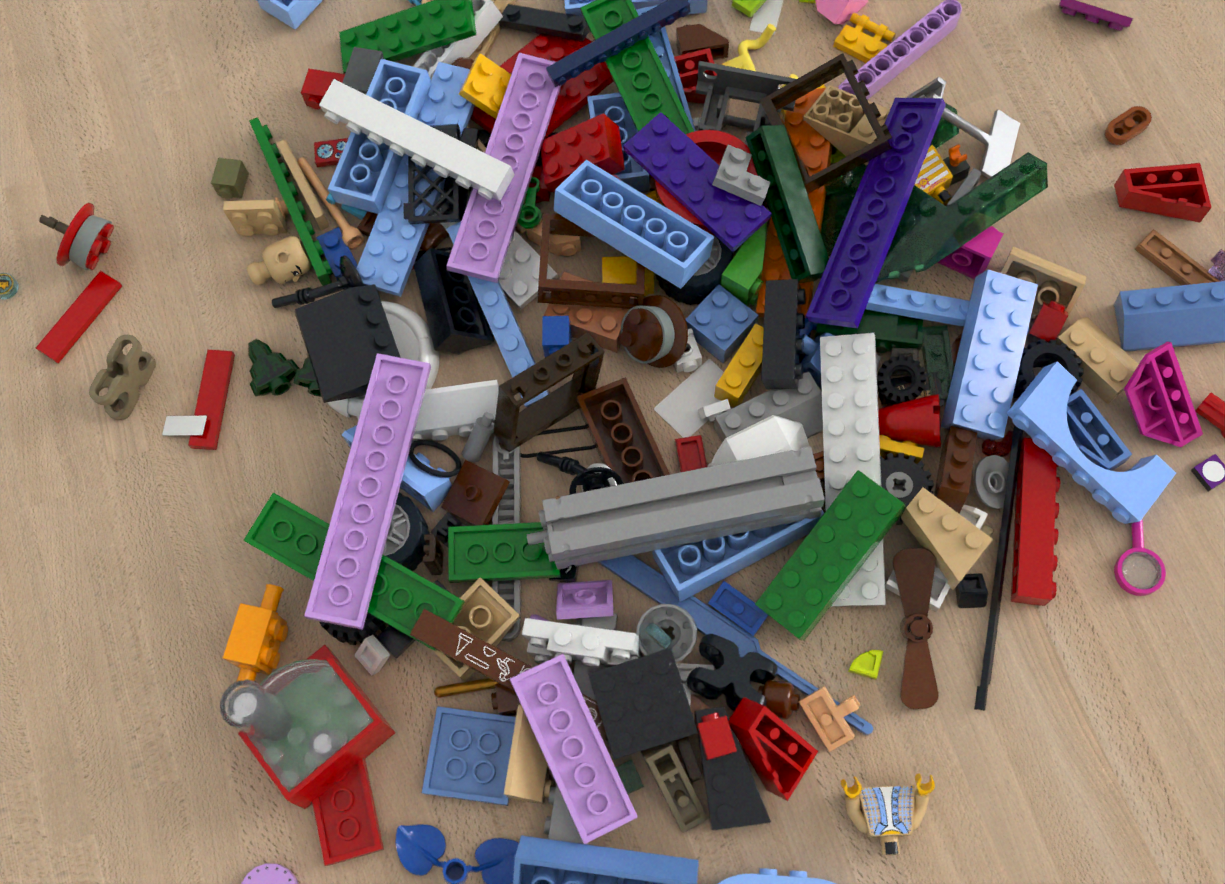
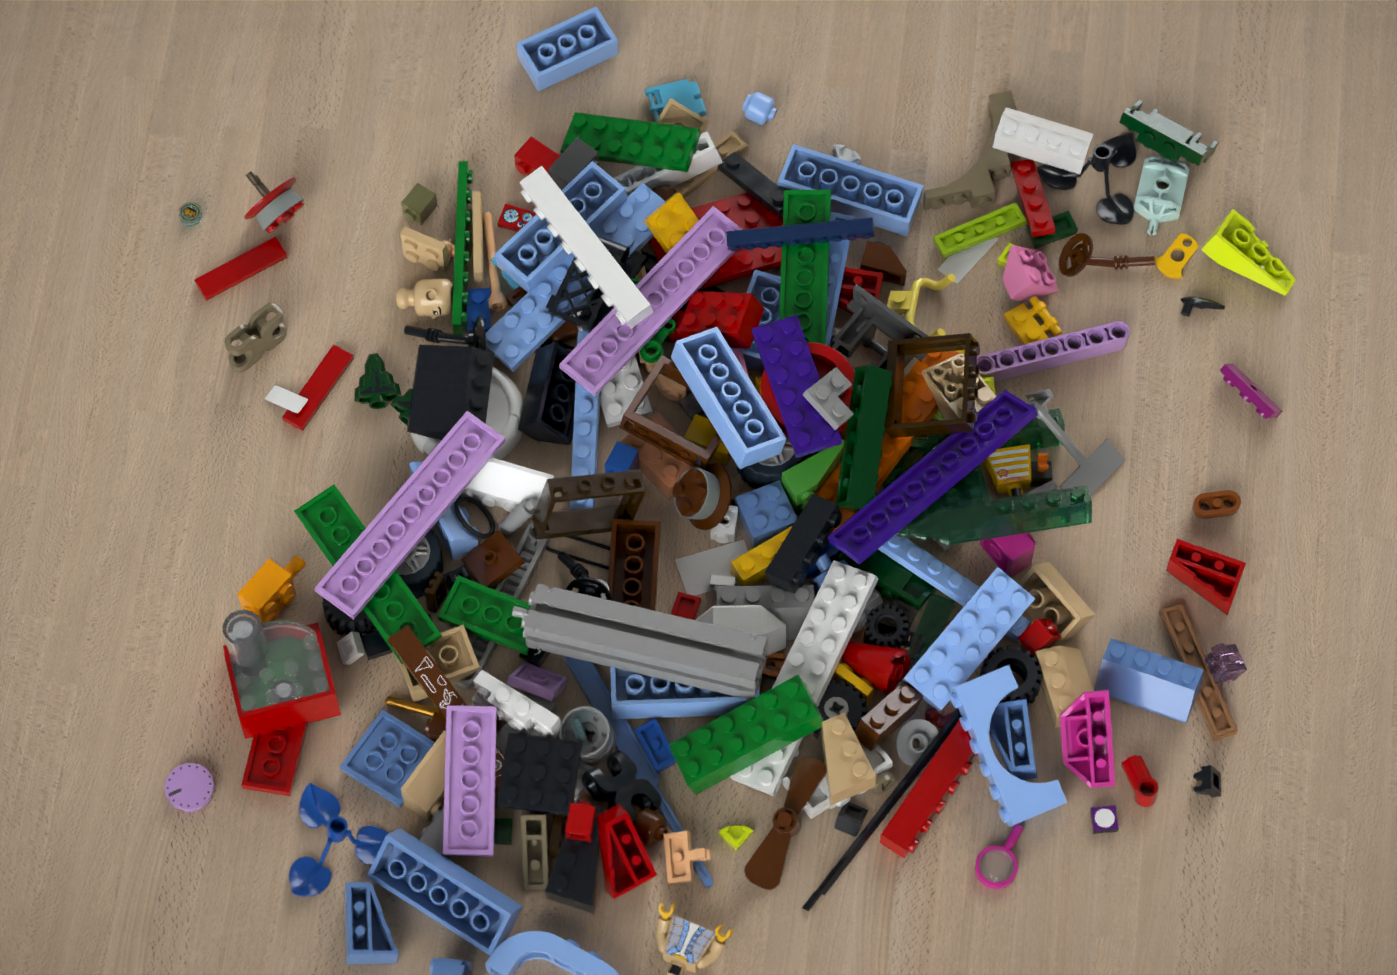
camera: 20 degrees right, 5 degrees down
(593, 250) = (691, 406): none -> flat silver tile

